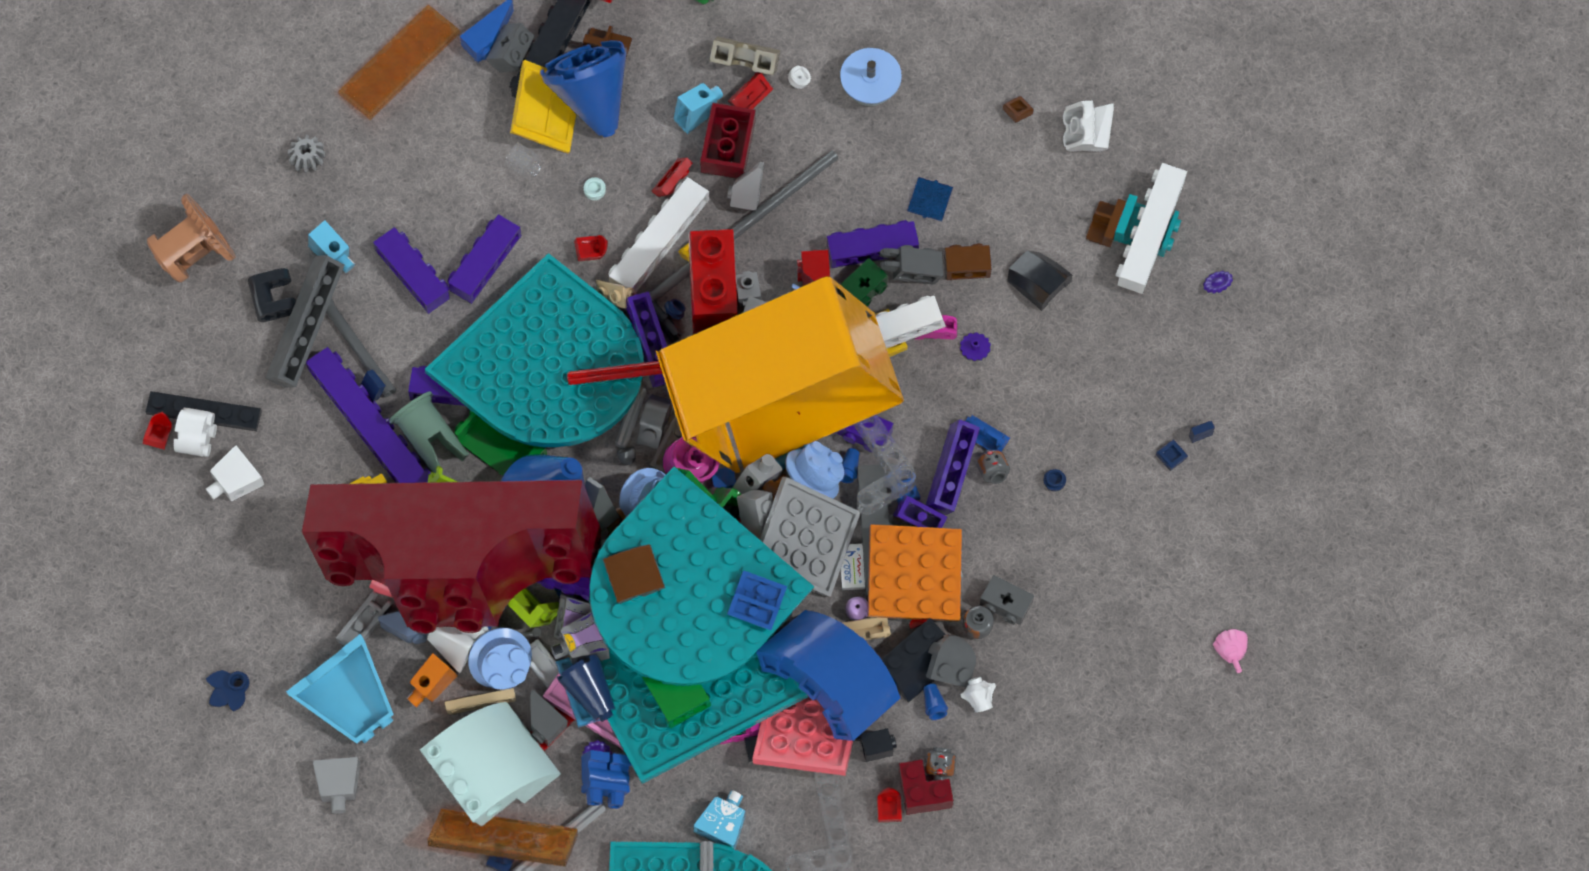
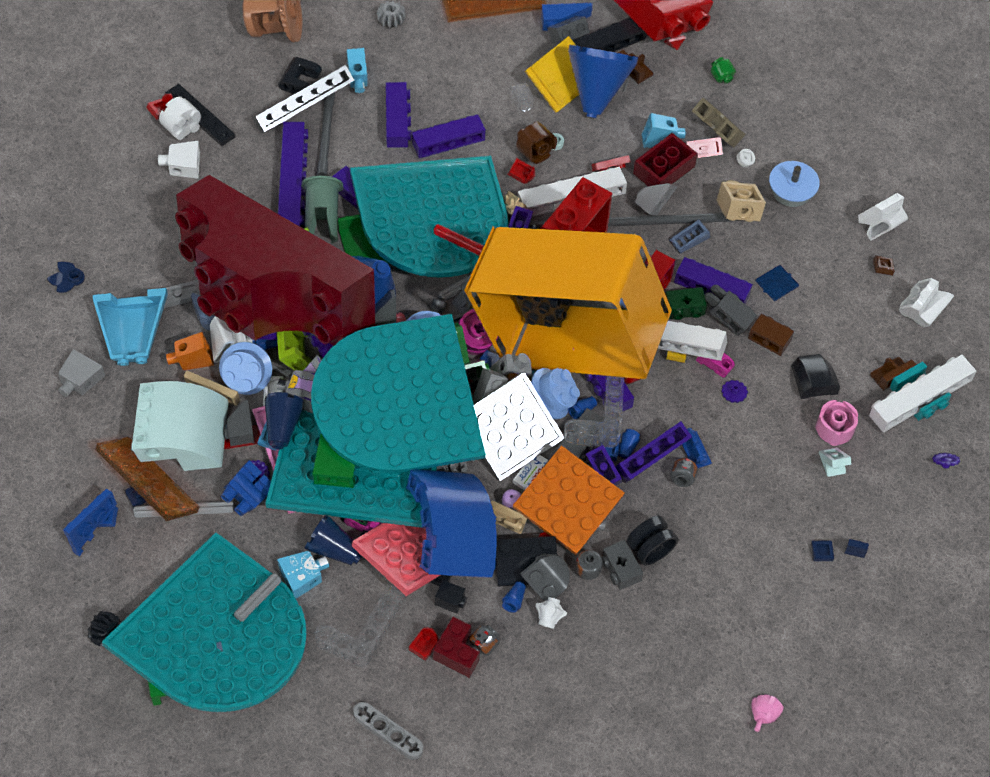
camera: 35 degrees right, 10 degrees down
(373, 385) = (314, 162): dark blue tile -> none
(582, 206) = (536, 142): none -> reddish brown brick
(634, 573) = (364, 358): reddish brown slope -> none
(728, 772) = (332, 542): none -> dark blue cone
(757, 600) = (436, 434): blue slope -> none
(811, 188) = (704, 235): none -> sand blue slope
(834, 134) = (740, 201): none -> tan brick
(921, 468) = (629, 441): none -> blue cone
(983, 55) = (884, 216): none -> white piece
(1016, 556) = (652, 540): none -> black wheel
(1054, 480) = (722, 510): dark blue plate -> none
(1095, 326) = (837, 422): none -> bright pink brick
(1119, 355) = (834, 461): none -> light aqua slope

